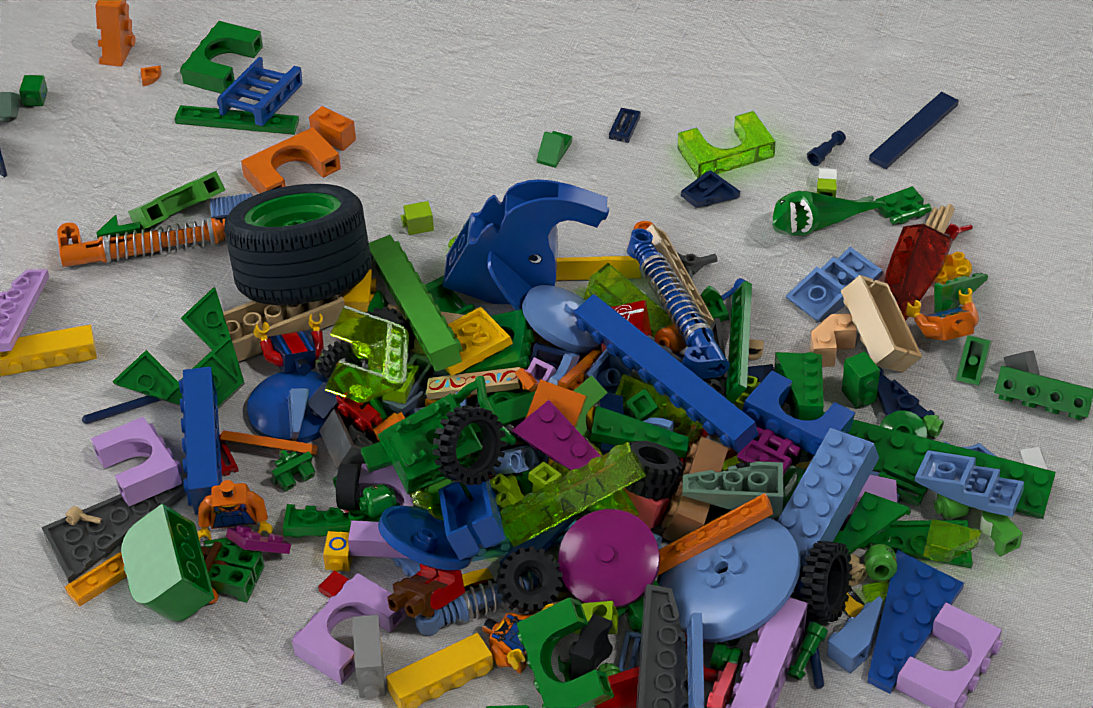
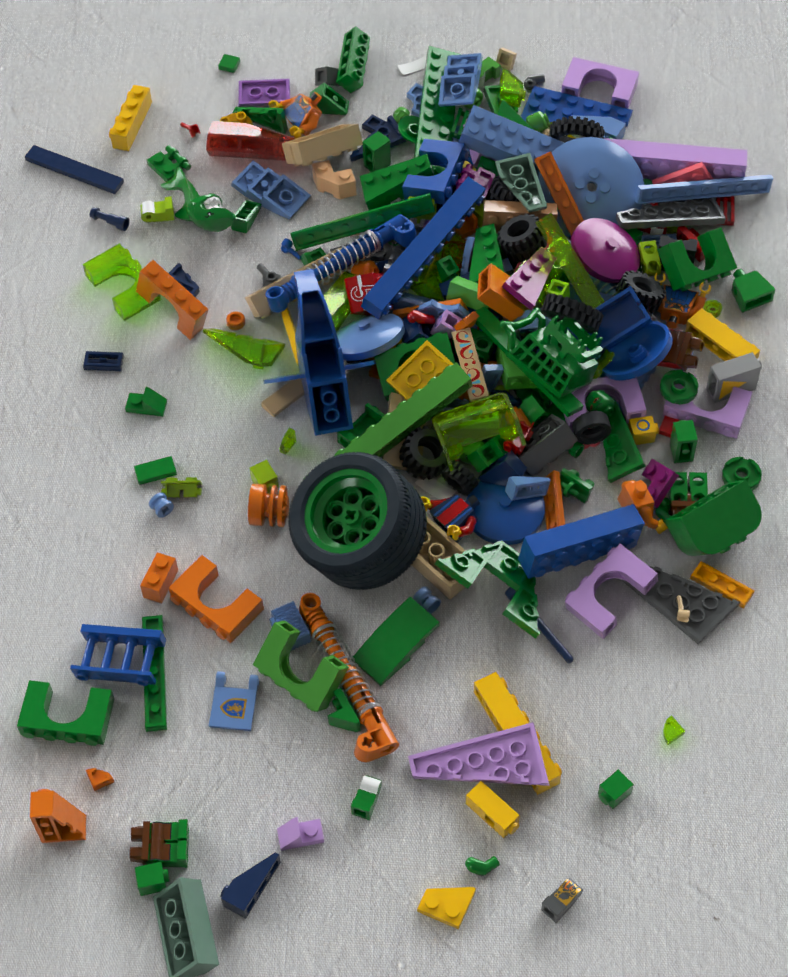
camera: 105 degrees left, 10 degrees up
(19, 191) = (300, 834): none -> lavender slope
(24, 235) = (366, 797): none -> green leg
(60, 99) = (161, 843): none -> hips
(174, 165) = (233, 706): none -> medium blue flag
(174, 283) = (395, 641): none -> green slope
(242, 651) = (748, 466): none -> green tile
(297, 576) = (683, 441): none -> green brick
(369, 579) = (675, 395): none -> green tile
(380, 205) = (271, 505): none -> orange wheel
(418, 140) = (161, 505): none -> medium blue wheel
(436, 159) = (189, 487): none -> lime hinge
(466, 145) = (155, 470): none -> green tile
(502, 685) = (713, 307): none -> clear neon green tile
(556, 349) = (419, 317): none -> red arm
(597, 242) = (249, 349): none -> clear neon green wedge
(642, 166) = (156, 281): none -> orange arch
(792, 250) = (245, 217): none -> green slope
(930, 400) = (372, 123): none -> dark blue tile
(940, 218) = (186, 132): tan tile -> none
(976, 585) = (531, 81): none -> dark grey arm
(982, 178) = (130, 118): none -> yellow brick
(1008, 306) = (259, 92): none -> medium lavender tile
(1023, 561) = (506, 58): none -> tan tile
(1070, 281) = (229, 63): none -> green tile

